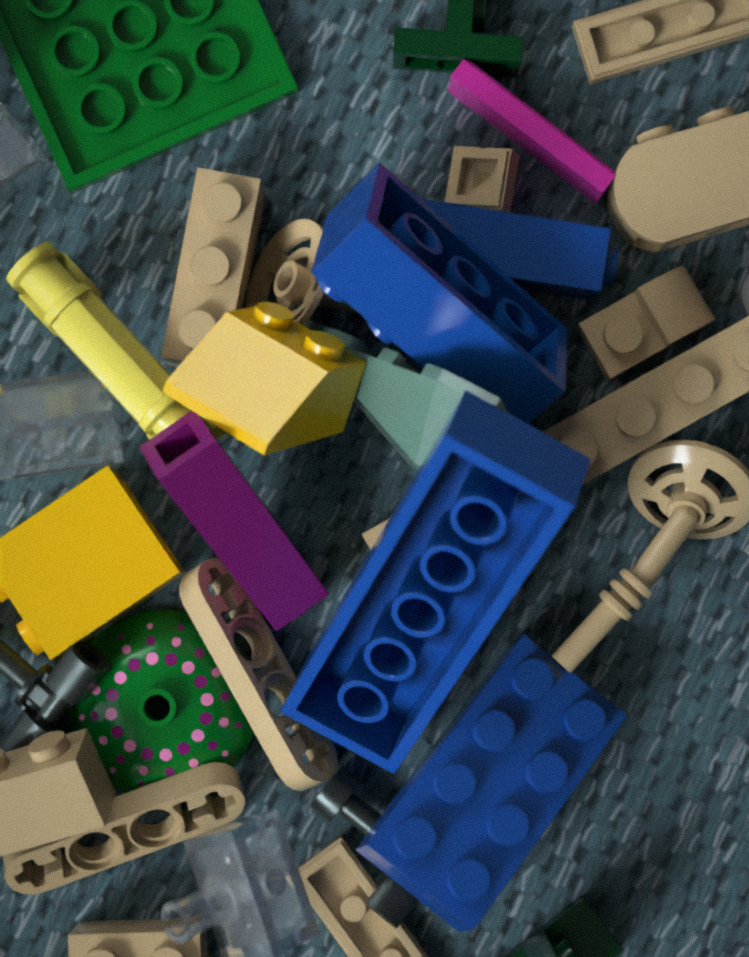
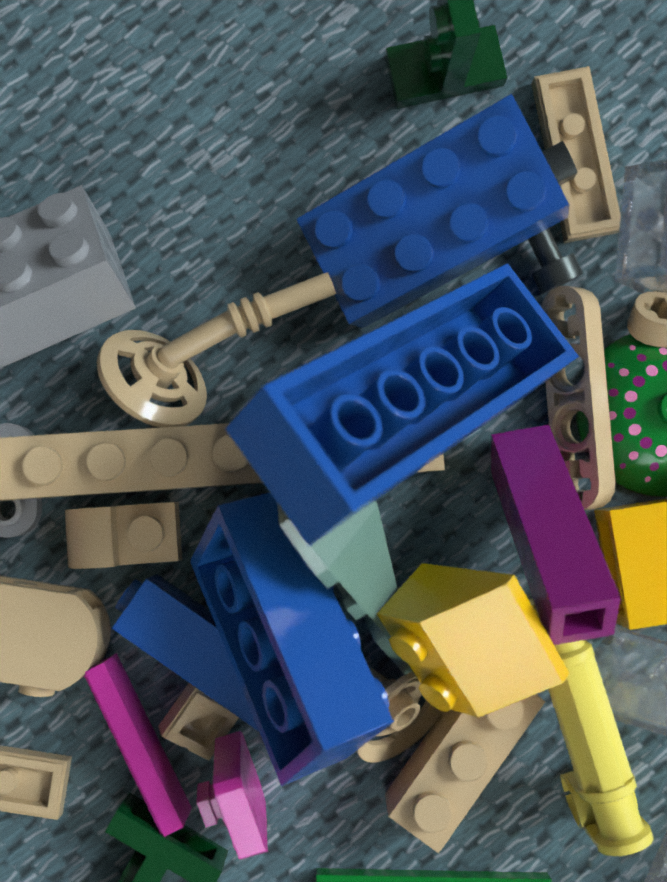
camera: 155 degrees left, 0 degrees up
(413, 127) = (235, 796): none -> dark pink piece

